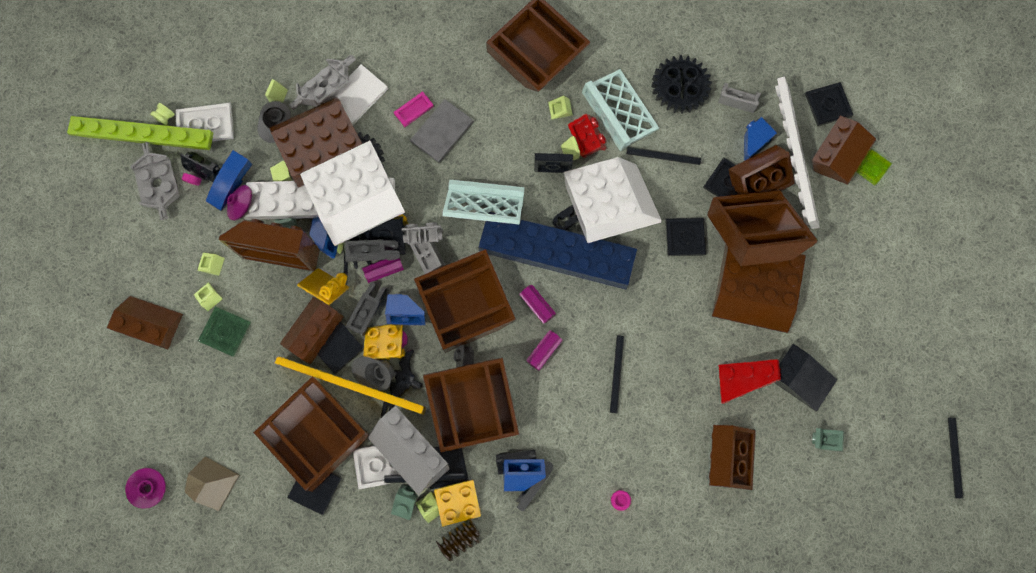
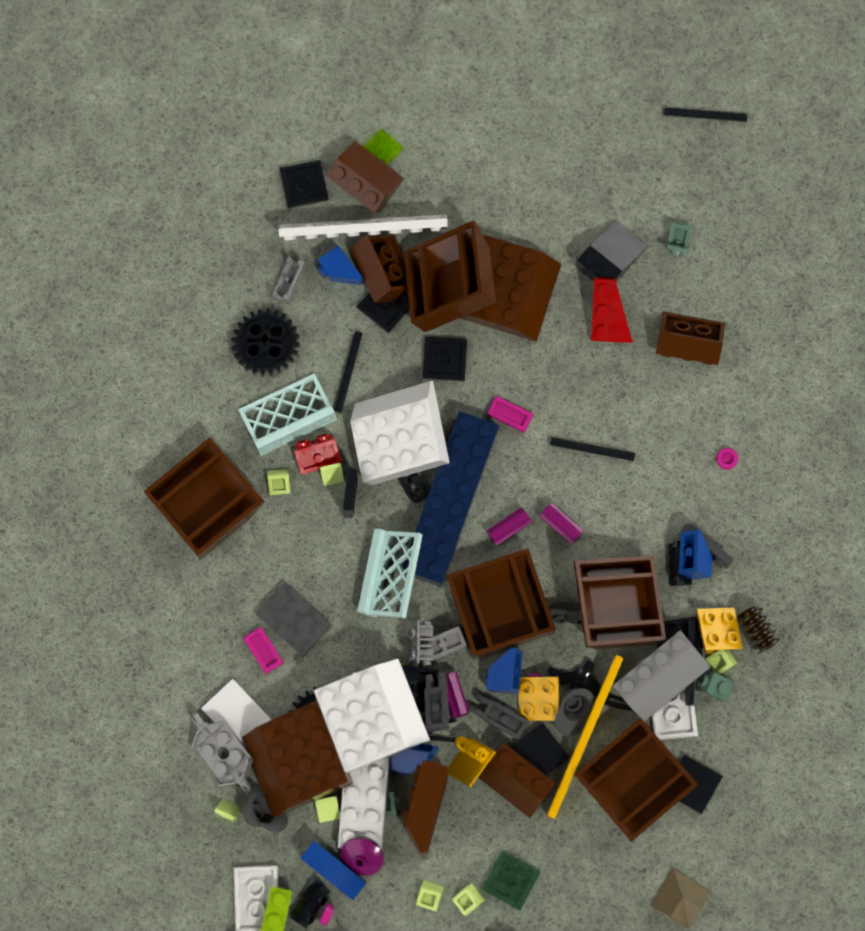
camera: 85 degrees left, 0 degrees up
(641, 297) = (510, 414): none -> dark pink tile

